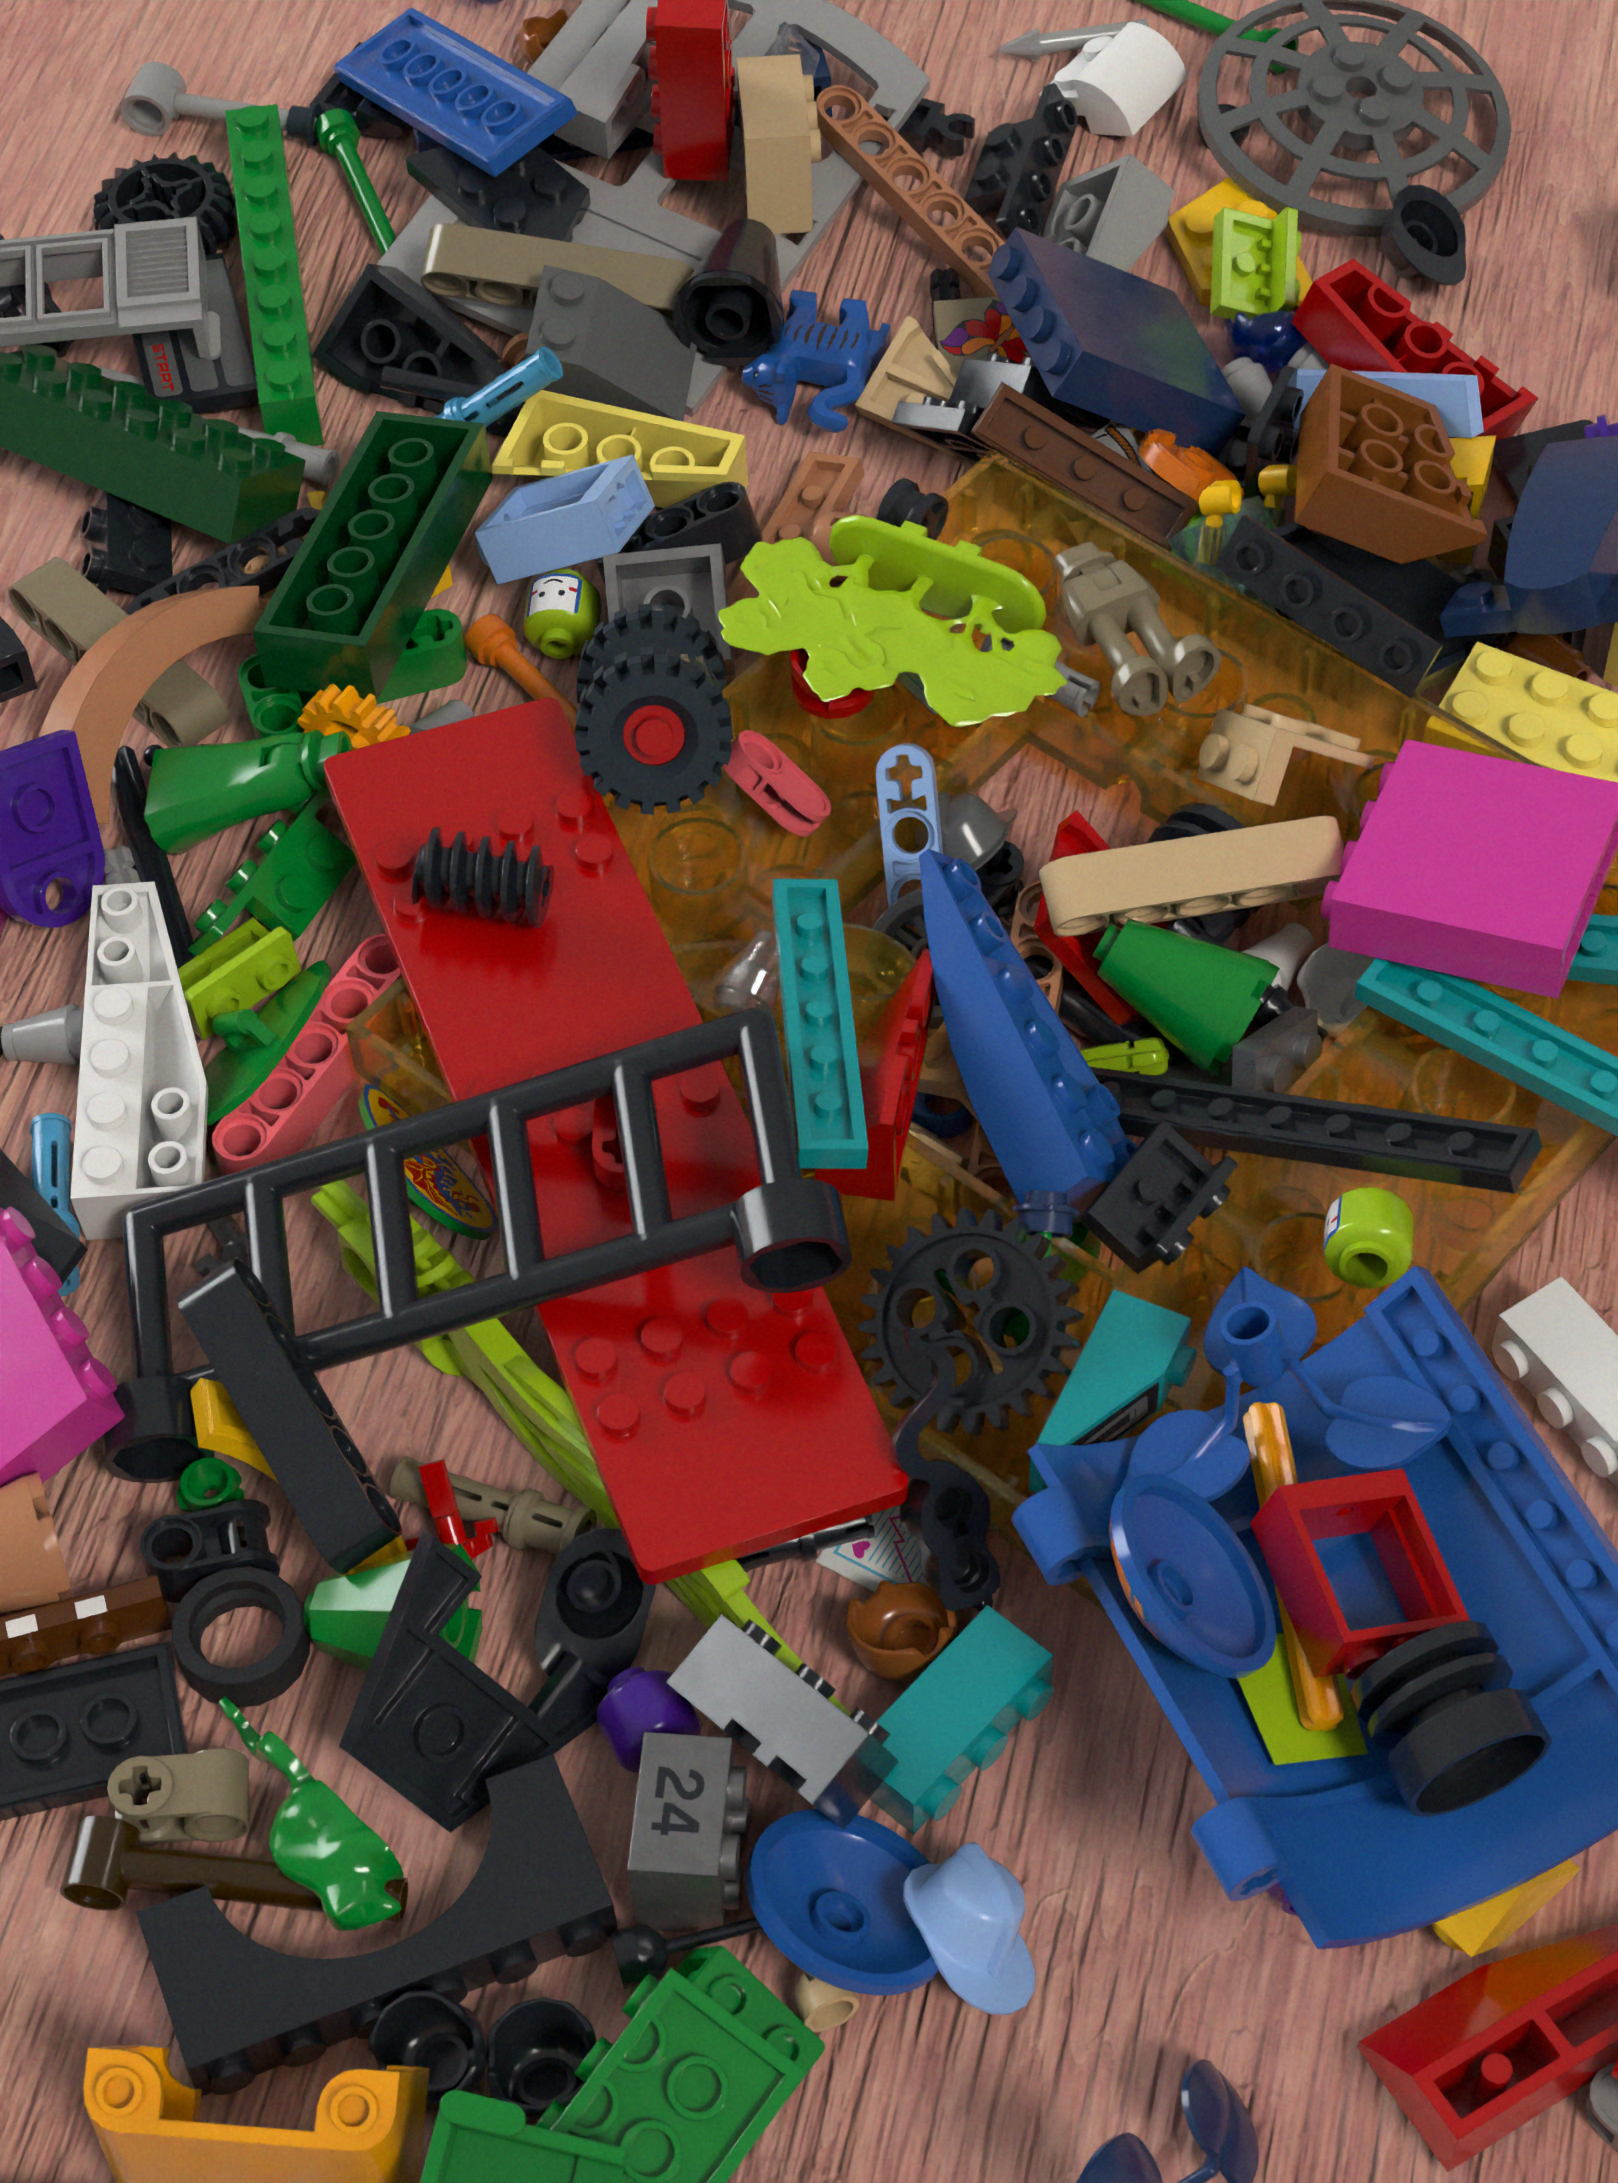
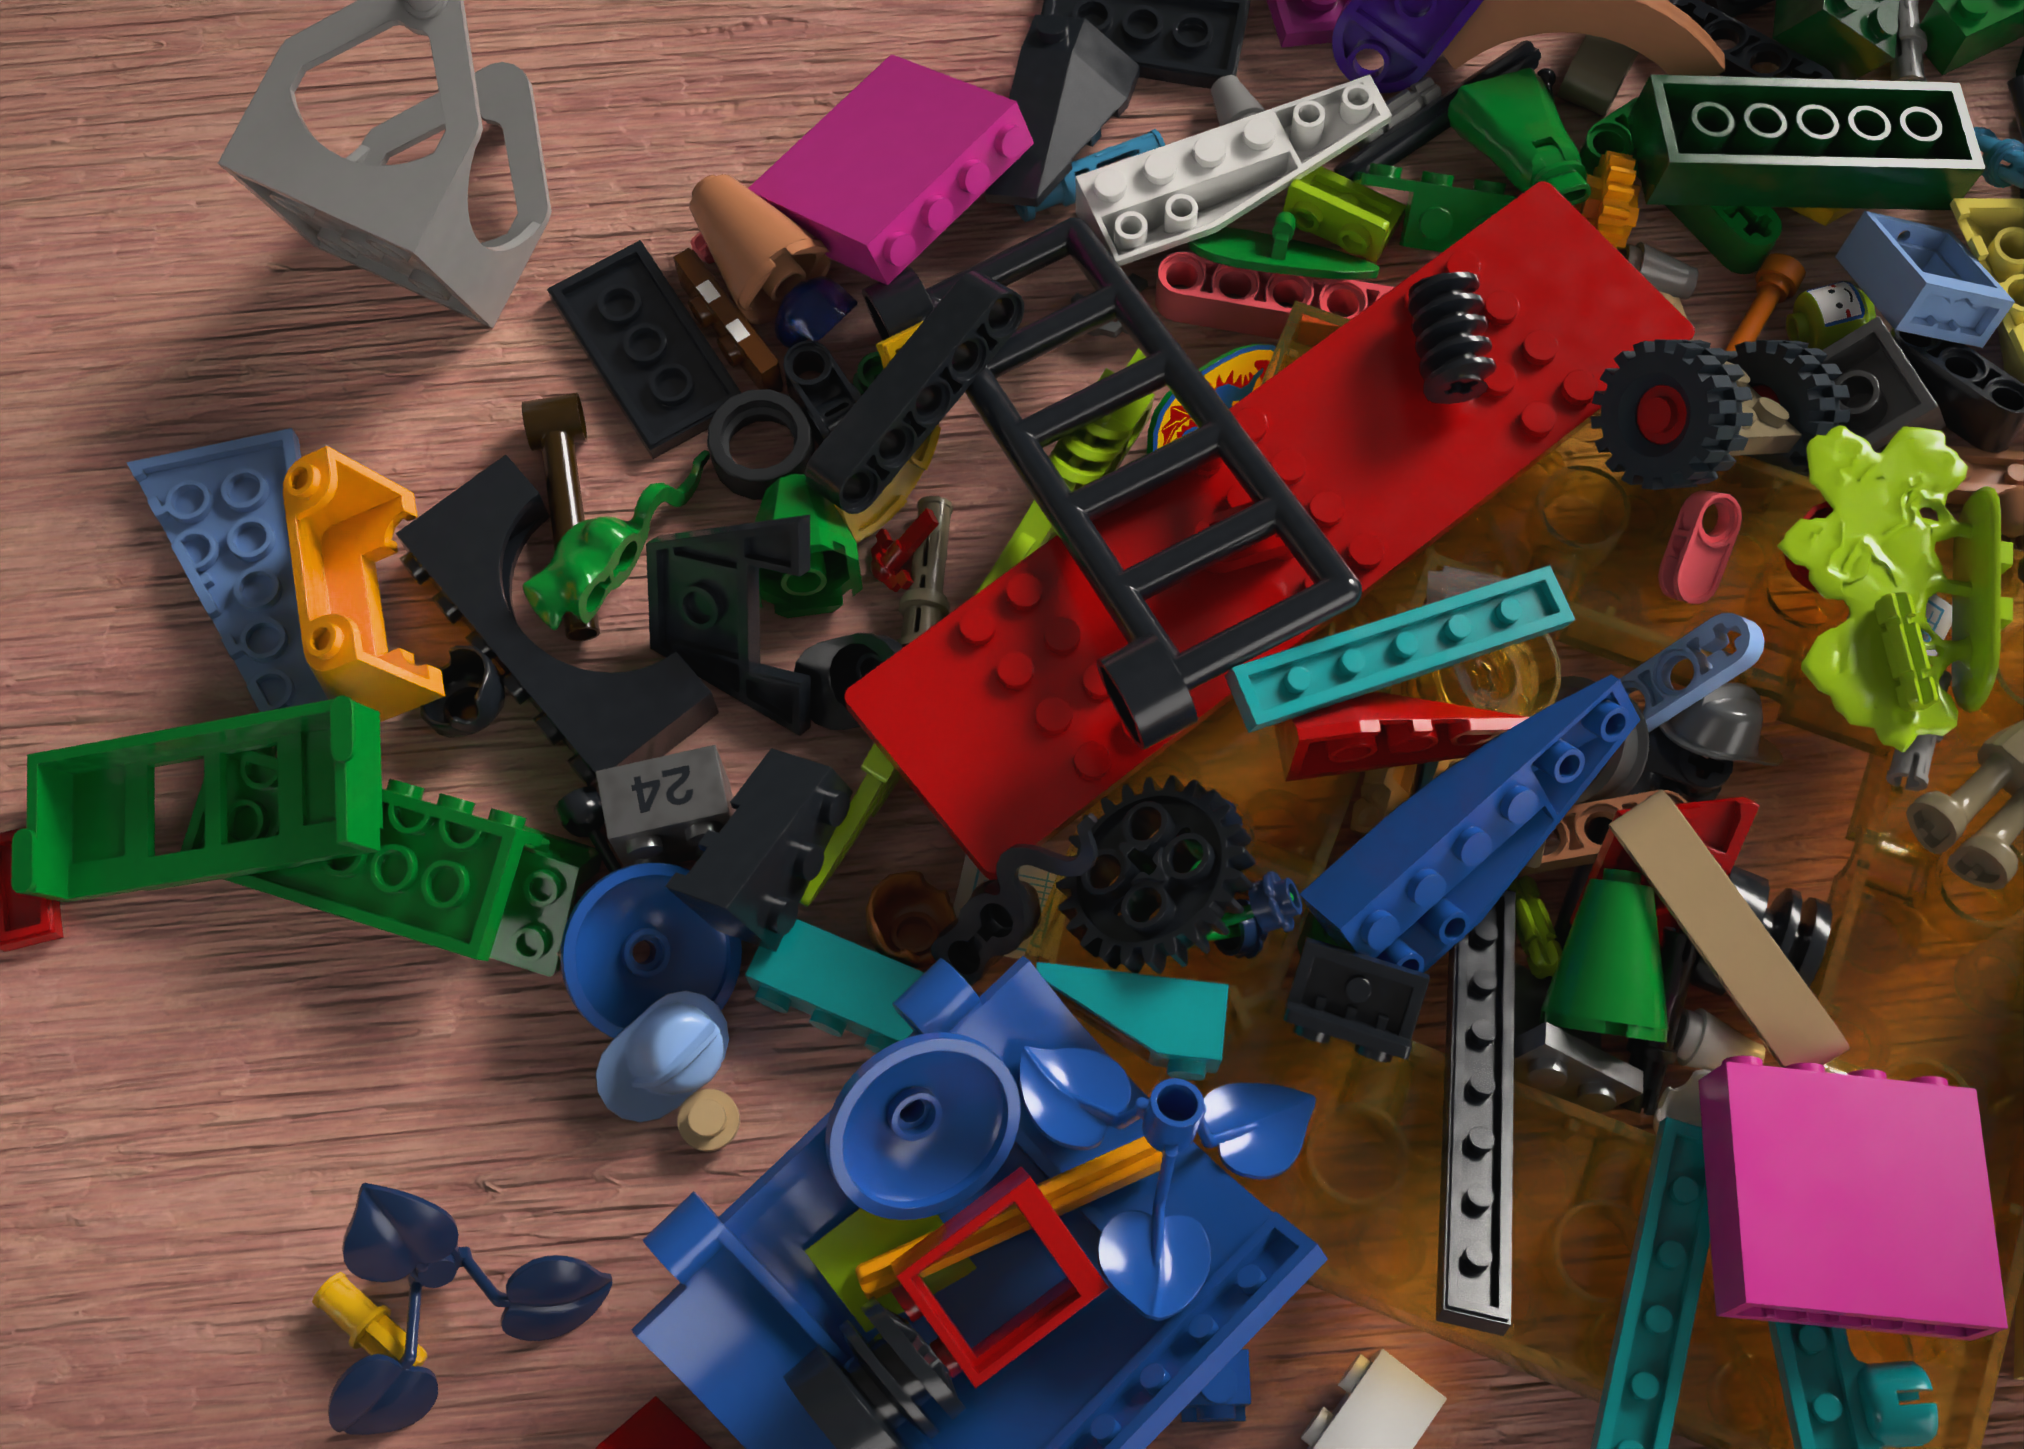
camera: 70 degrees right, 15 degrees up
(99, 1525) = (811, 310): none -> clear blue hair
(187, 1794) = (619, 456): dark tan piece -> none
(537, 2053) = (473, 768): black hair -> none
(639, 1704) = (760, 736): dark purple head -> none
(975, 639) = (1906, 651): none -> lime axle
(1059, 1909) = (708, 1120): none -> tan plate
(1253, 748) = (1941, 956): tan bracket -> none
(1369, 1237) = (1381, 1201): lime head -> none

